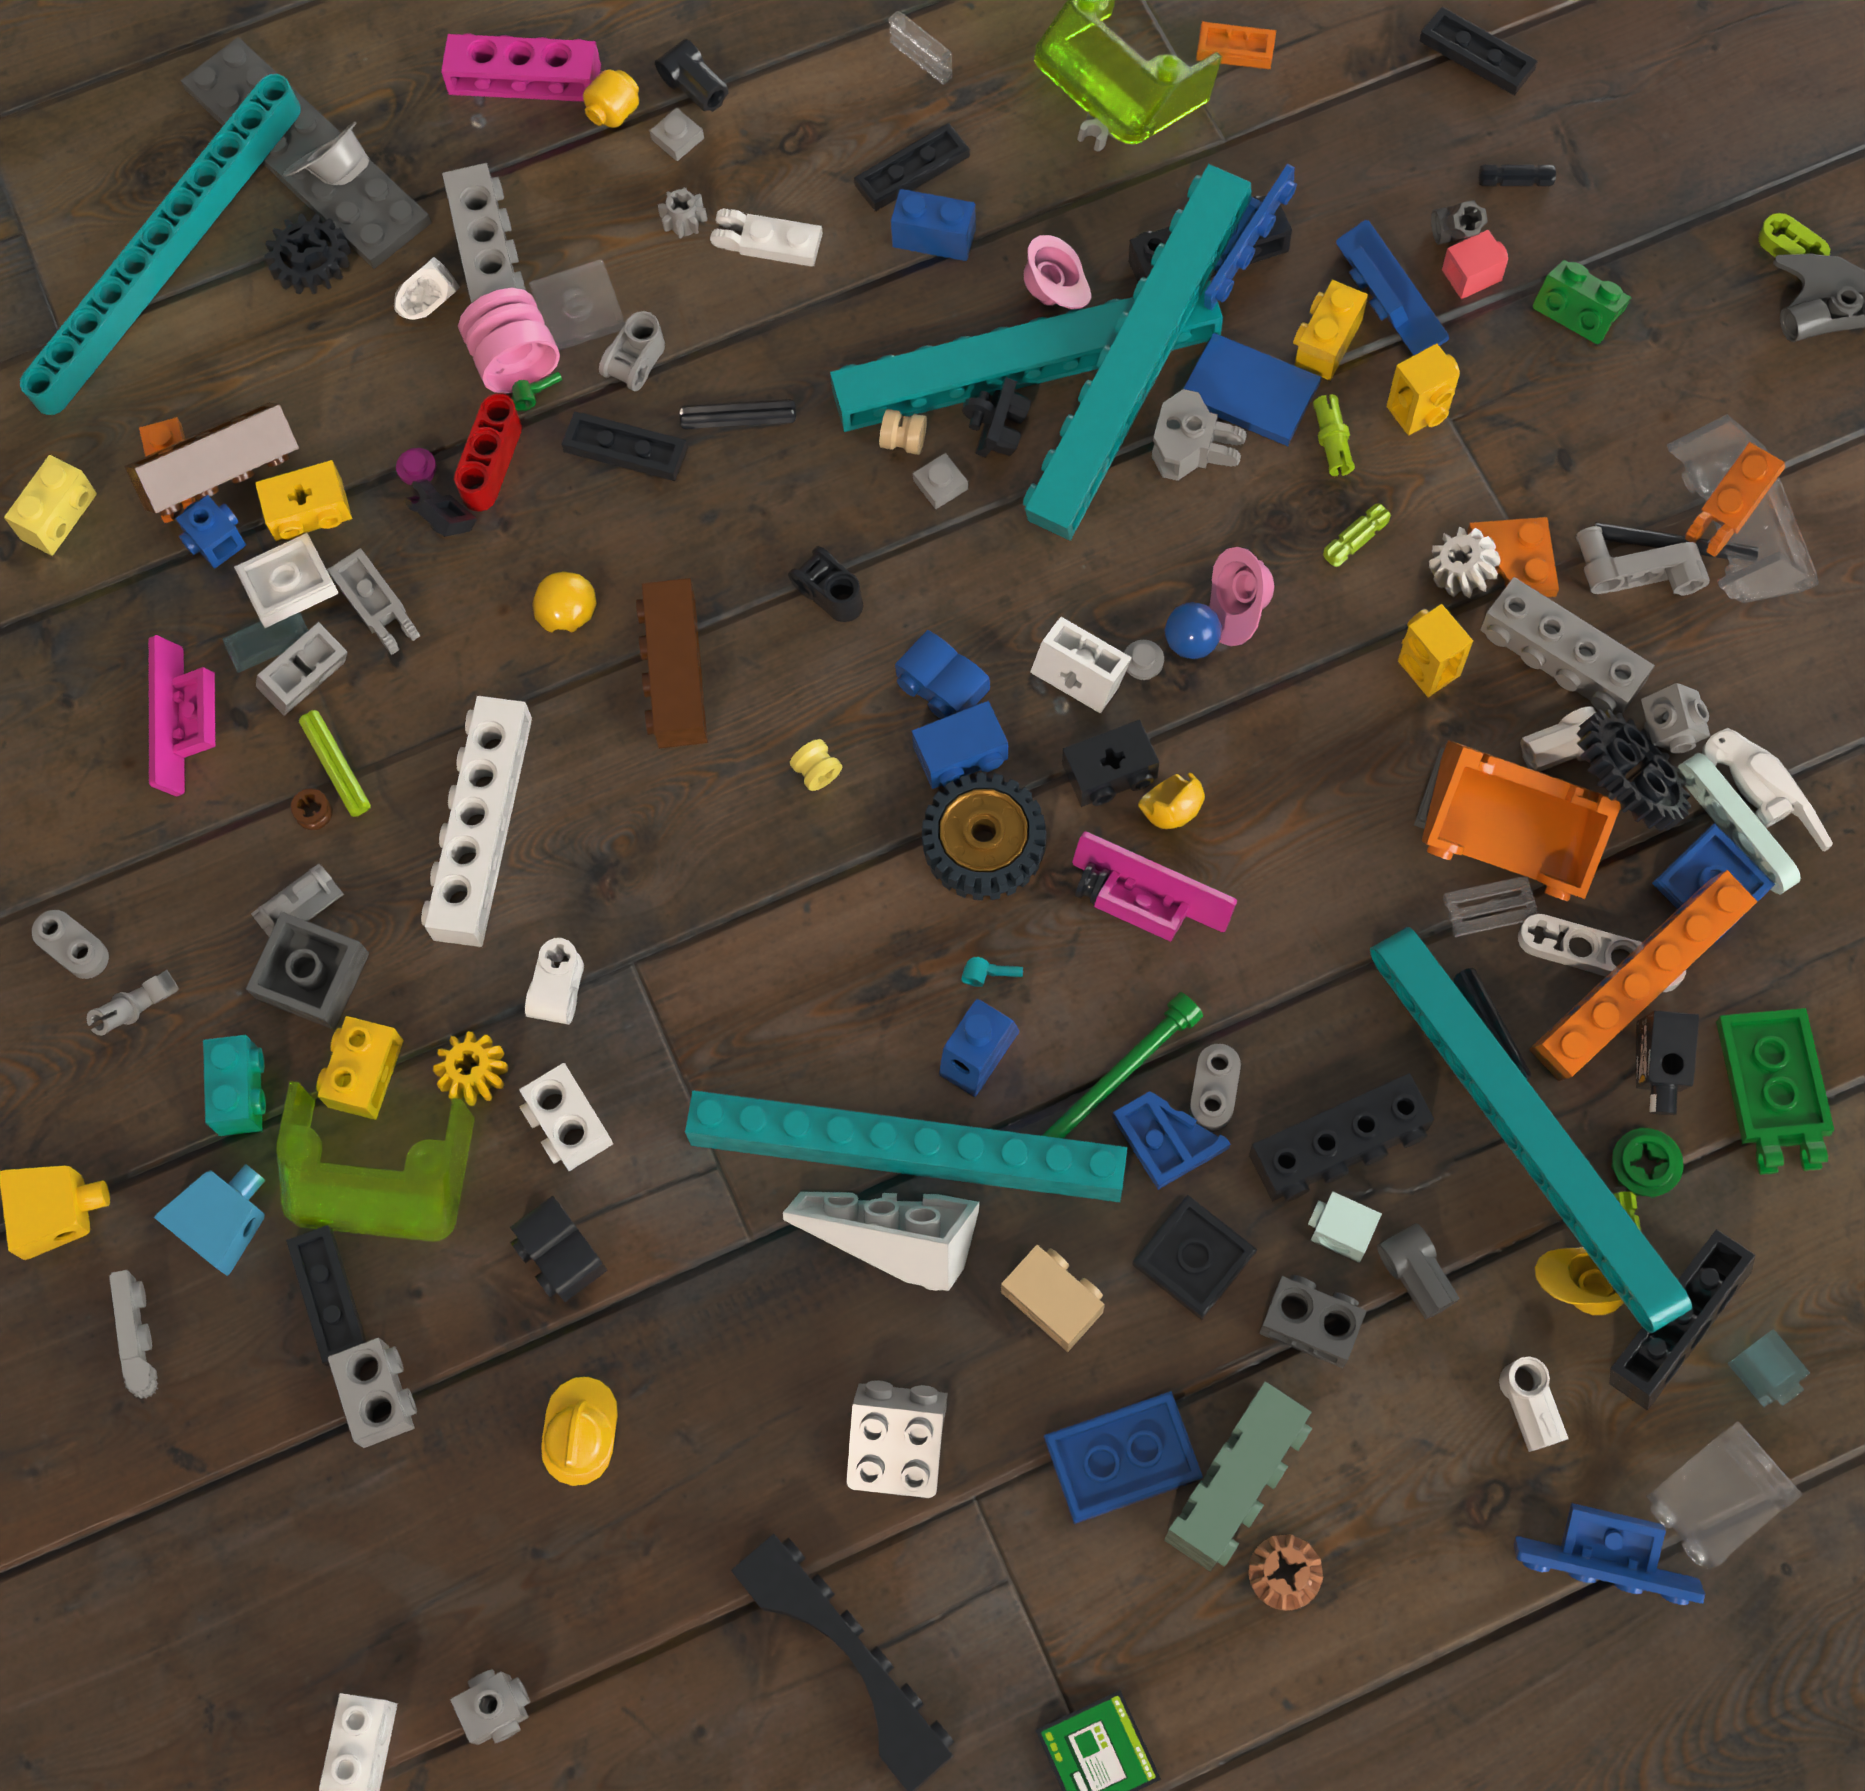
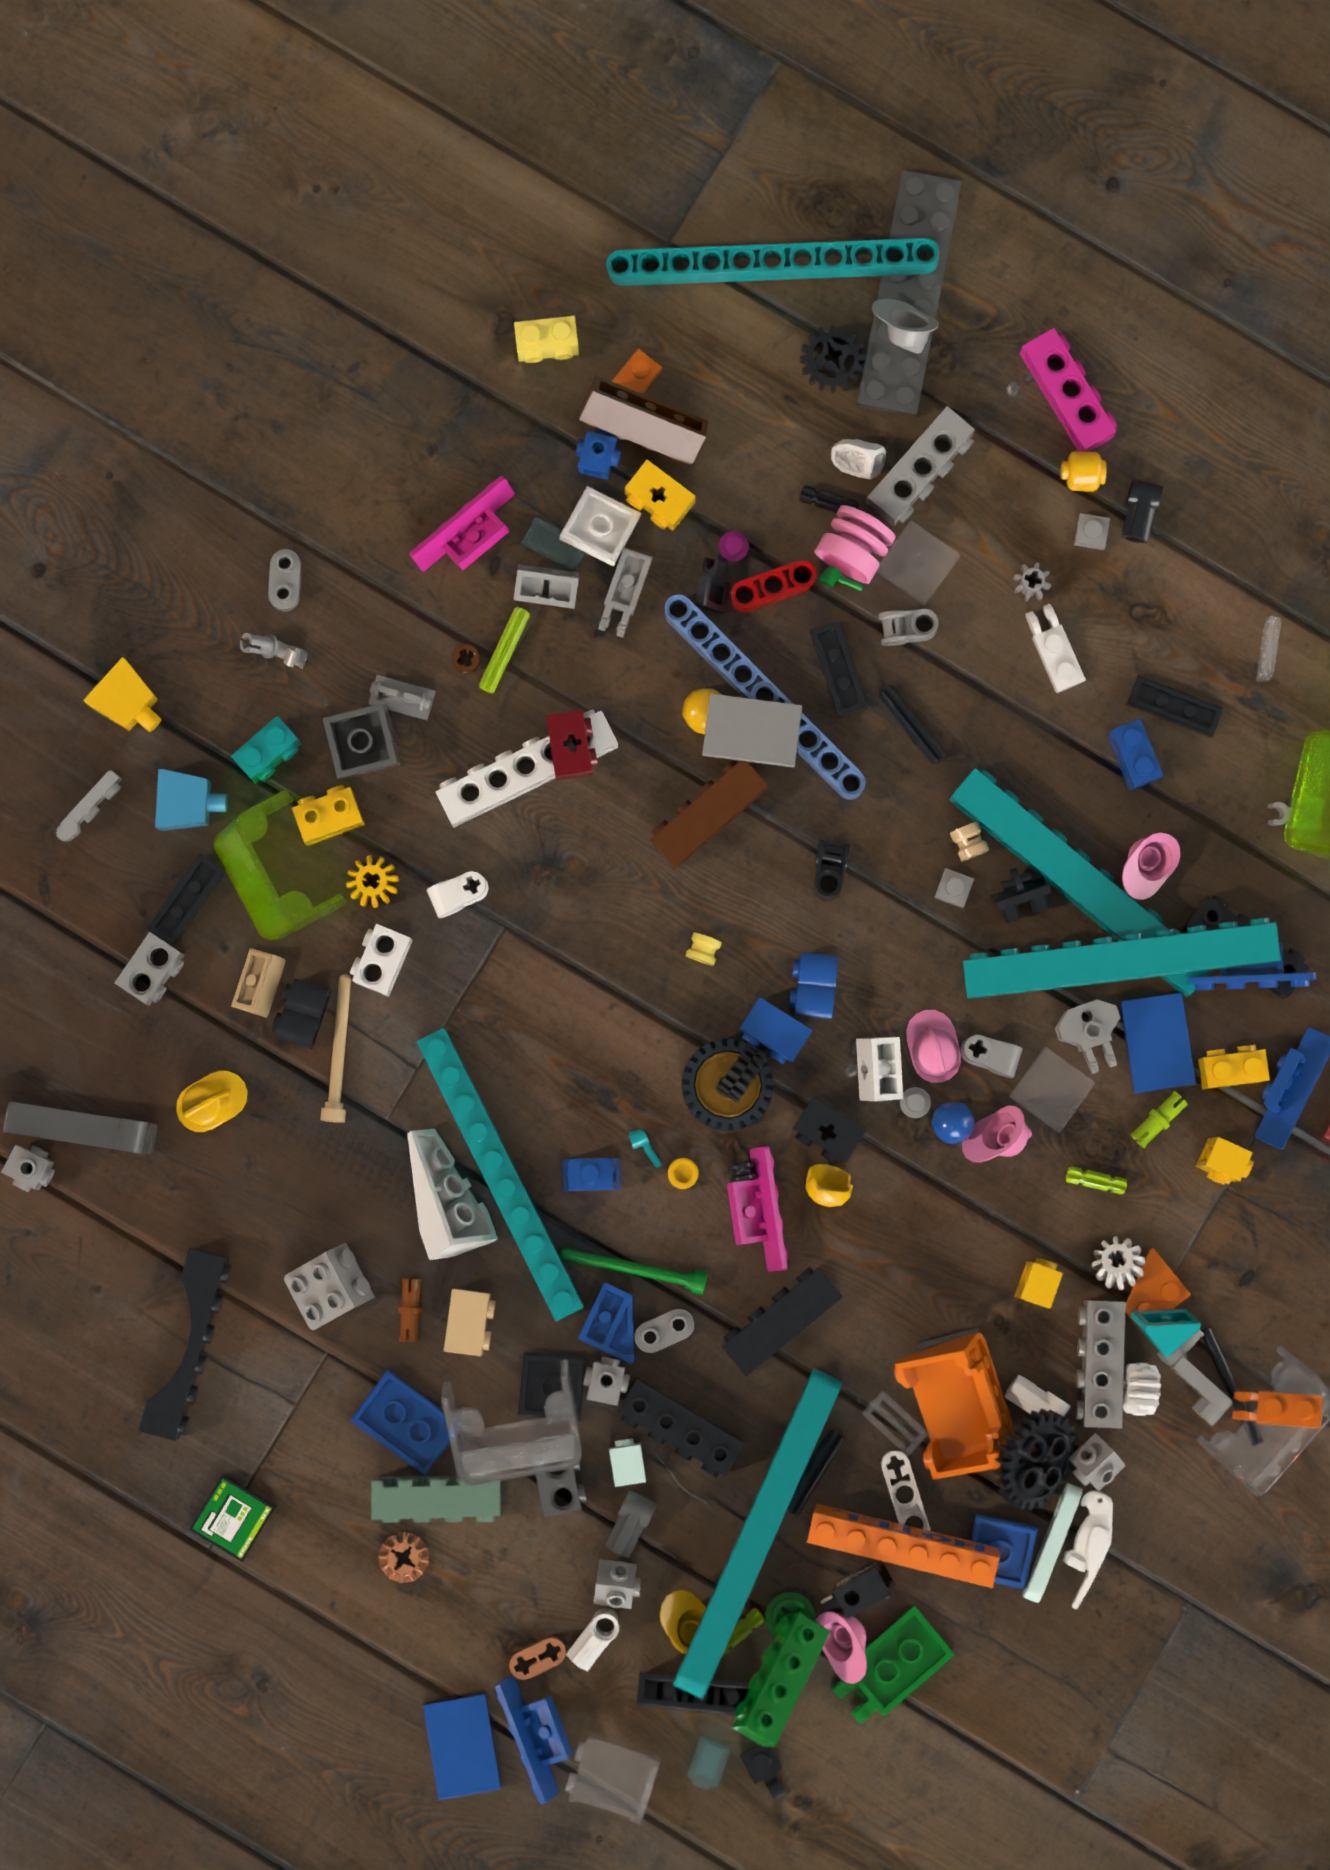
camera: 50 degrees right, 15 degrees up
(439, 354) = (825, 499): none -> black axle
(484, 1279) = (258, 982): none -> tan slope
(495, 1607) = (80, 1128): none -> dark grey beam
(499, 761) = (567, 763): none -> dark red brick
(577, 525) = (757, 683): none -> medium blue beam
(619, 555) = (752, 730): none -> light grey tile
(695, 1290) = (333, 1108): none -> tan piece
(983, 793) = (742, 1072): none -> black tyre
(991, 1360) = (410, 1310): none -> dark orange pin
(1048, 950) = (683, 1173): none -> yellow tile
(1097, 605) = (933, 1046): none -> bright pink piece
(1146, 551) = (996, 1055): none -> light grey piece
(1226, 517) = (1052, 1089): none -> clear tile
(1231, 1199) = (606, 1393): none -> light grey brick
(1247, 1326) = (518, 1447): none -> clear windscreen
(1292, 946) = (781, 1321): none -> black brick
(1482, 1332) = (616, 1584): none -> light grey brick
(1524, 1492) = (541, 1664): none -> nougat beam
(1568, 1659) = (462, 1746): none -> blue tile
(1571, 558) = (1166, 1328): none -> teal slope
(1623, 619) = (1141, 1389): none -> white gear
(1721, 1118) = (844, 1645): none -> bright pink piece
(1724, 1205) = (780, 1679): none -> green brick
(1810, 1311) = (763, 1765): none -> black plate

